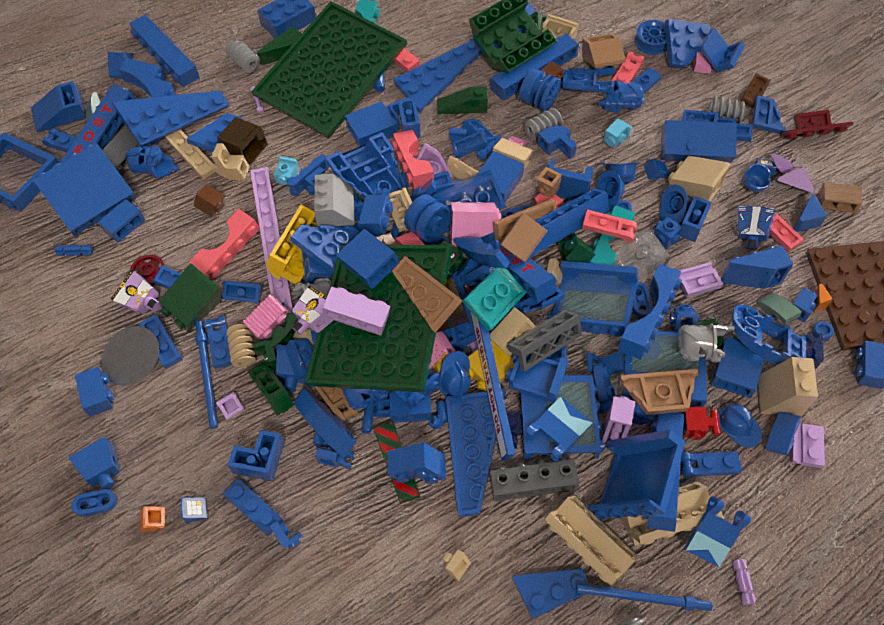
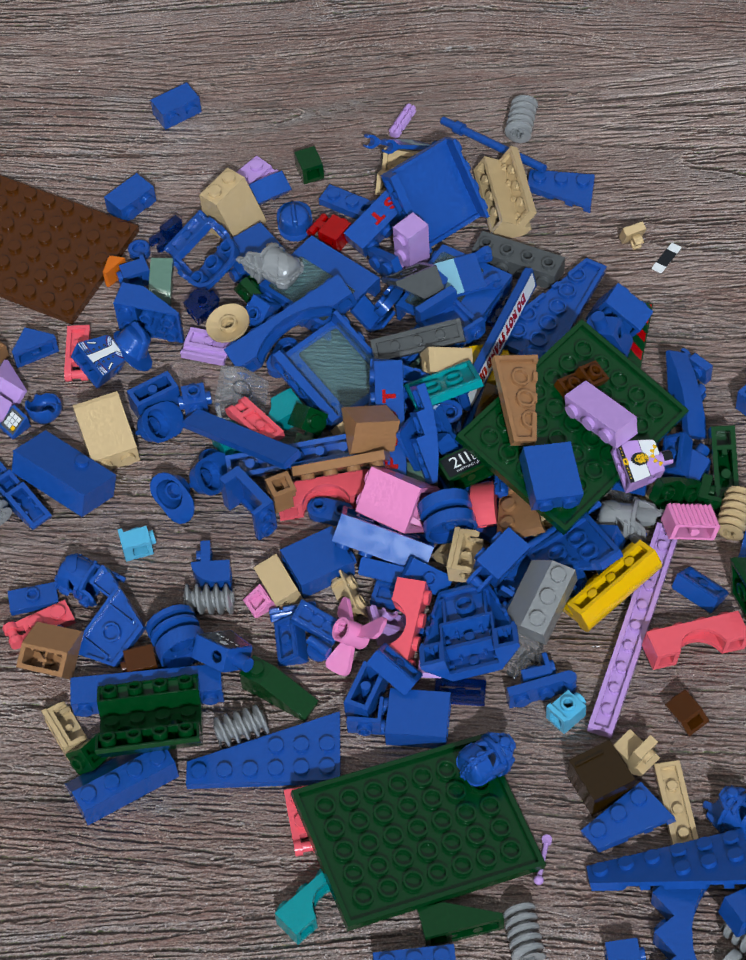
camera: 145 degrees left, 5 degrees down
(310, 109) = (486, 758): none -> blue helmet
(390, 339) = (589, 372): none -> reddish brown slope
(398, 127) = (394, 668): none -> blue slope
(412, 432) = (612, 330): none -> blue torso
(418, 565) = (666, 258): none -> sticker
(438, 139) = (351, 636): none -> bright pink piece
(466, 73) = (240, 725): none -> light grey piece
(503, 90) = (223, 651): none -> blue torso
(591, 390) = (418, 280): none -> dark grey slope
(605, 203) = (241, 439): none -> blue tile
(656, 169) = (131, 483): blue slope -> none
(661, 390) = (346, 252): medium nougat wing -> none
(698, 293) = (227, 323): none -> tan dish
(729, 298) = (201, 304): none -> clear blue brick
(741, 243) = (134, 346): none -> blue piece
(773, 475) = (309, 165): none -> dark green brick

